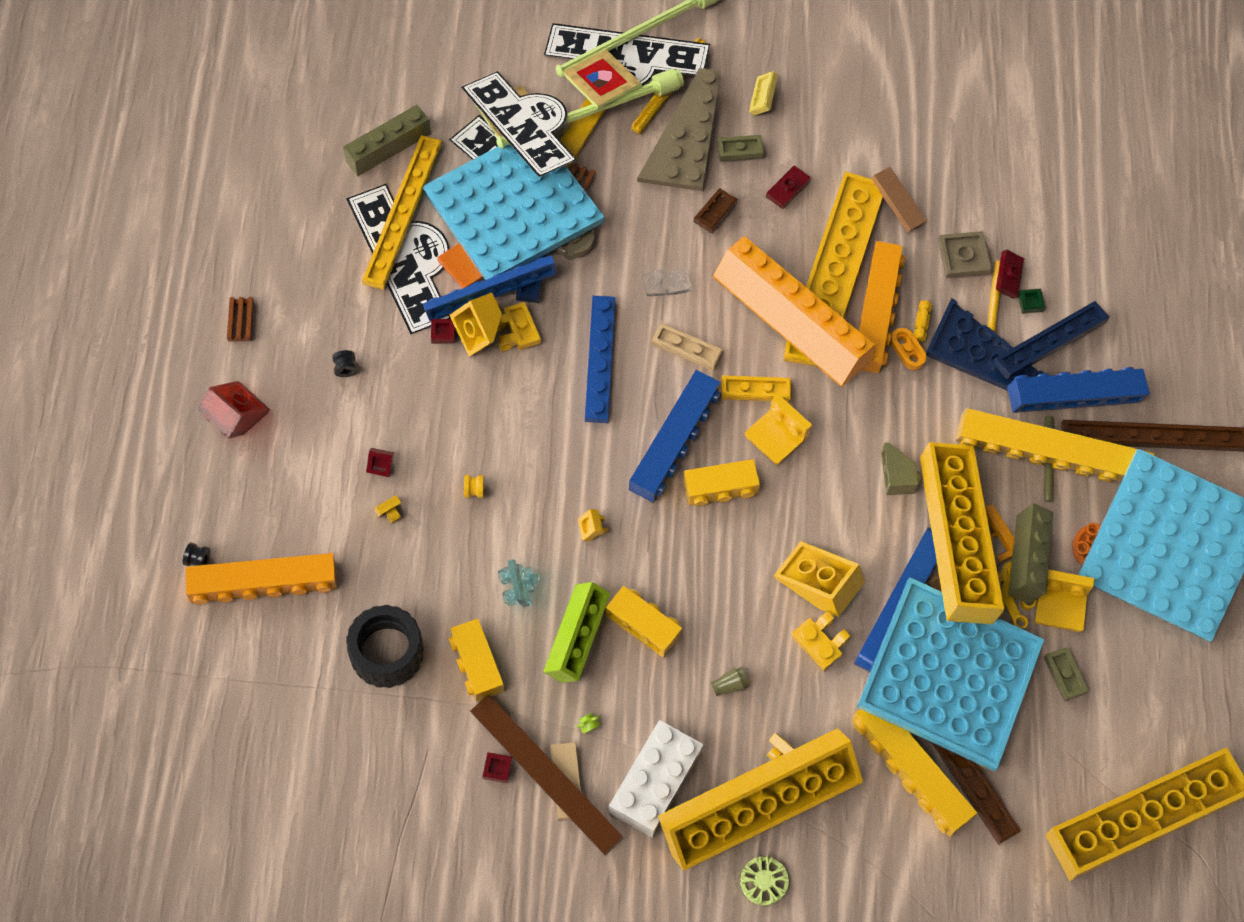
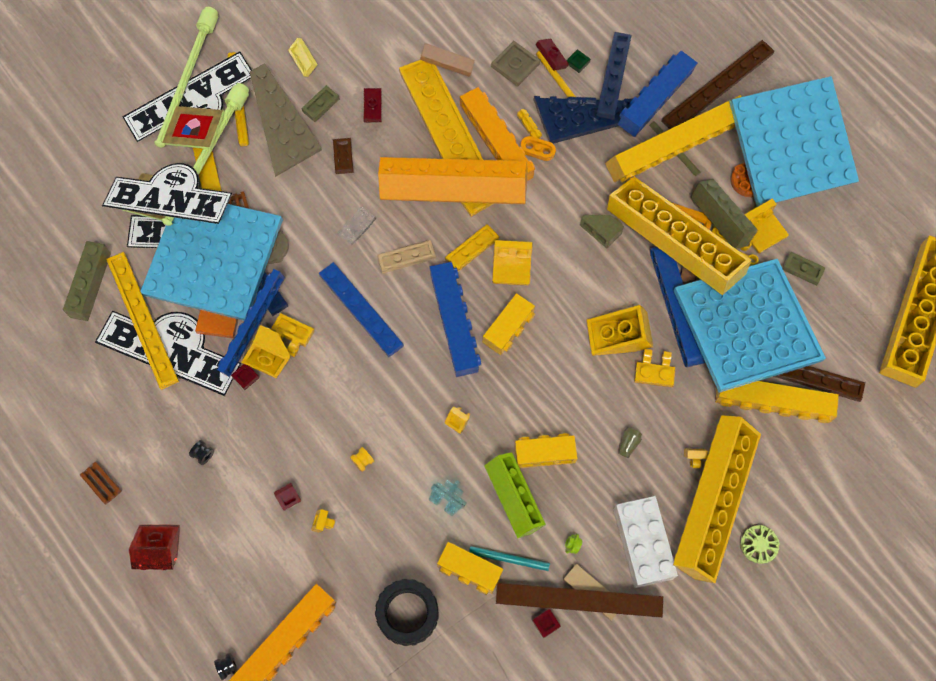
camera: 40 degrees left, 5 degrees up
(520, 685) = (509, 558): none -> teal bar

